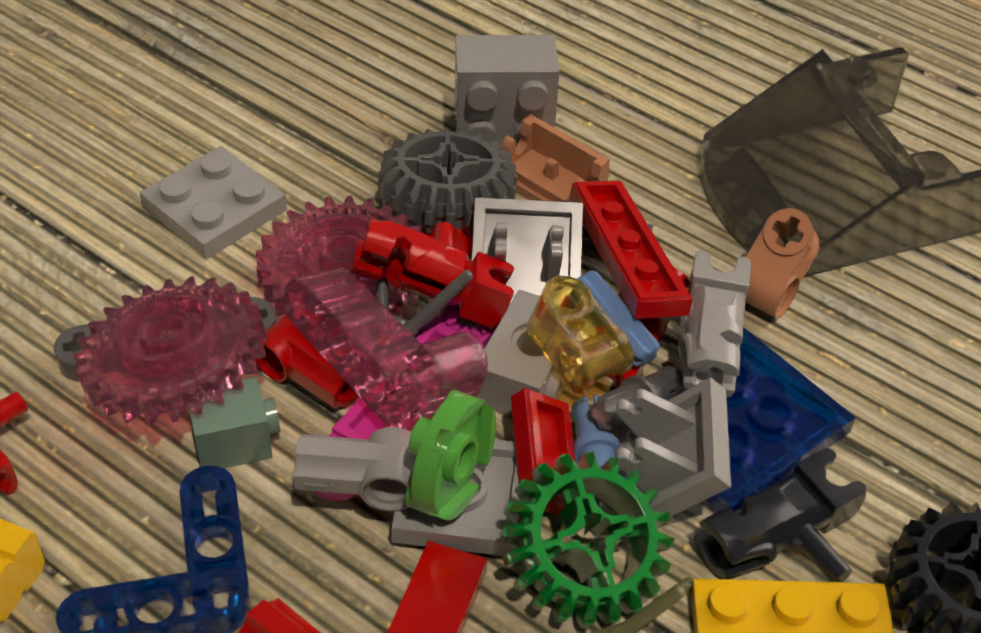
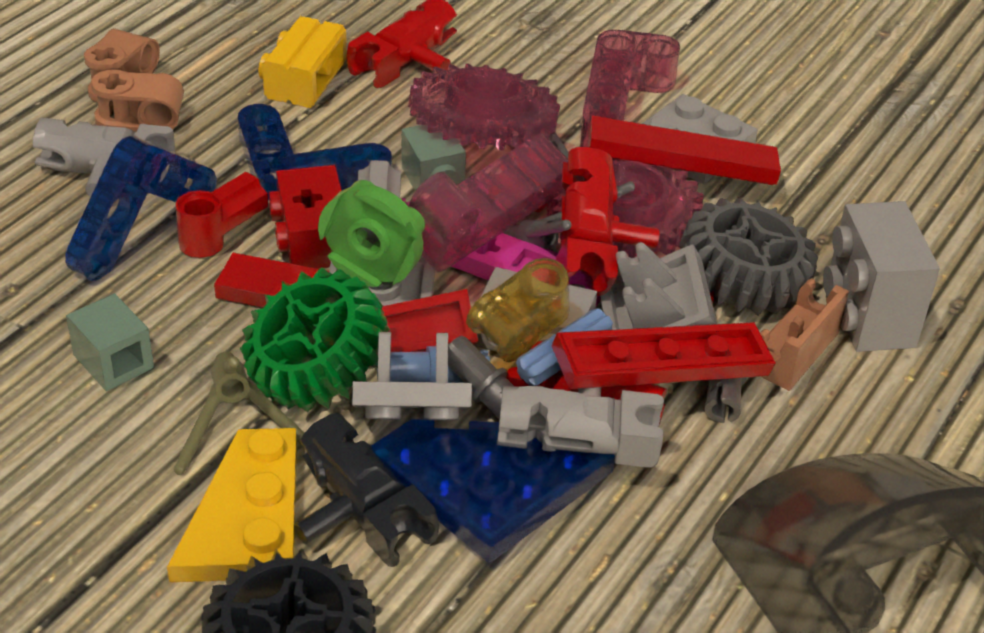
camera: 85 degrees right, 5 degrees down
(88, 242) = (623, 64): none -> clear pink beam
(278, 199) = (685, 150): none -> red tile
(328, 552) = (298, 205): none -> red brick
(777, 267) = (698, 495): nougat piece -> none

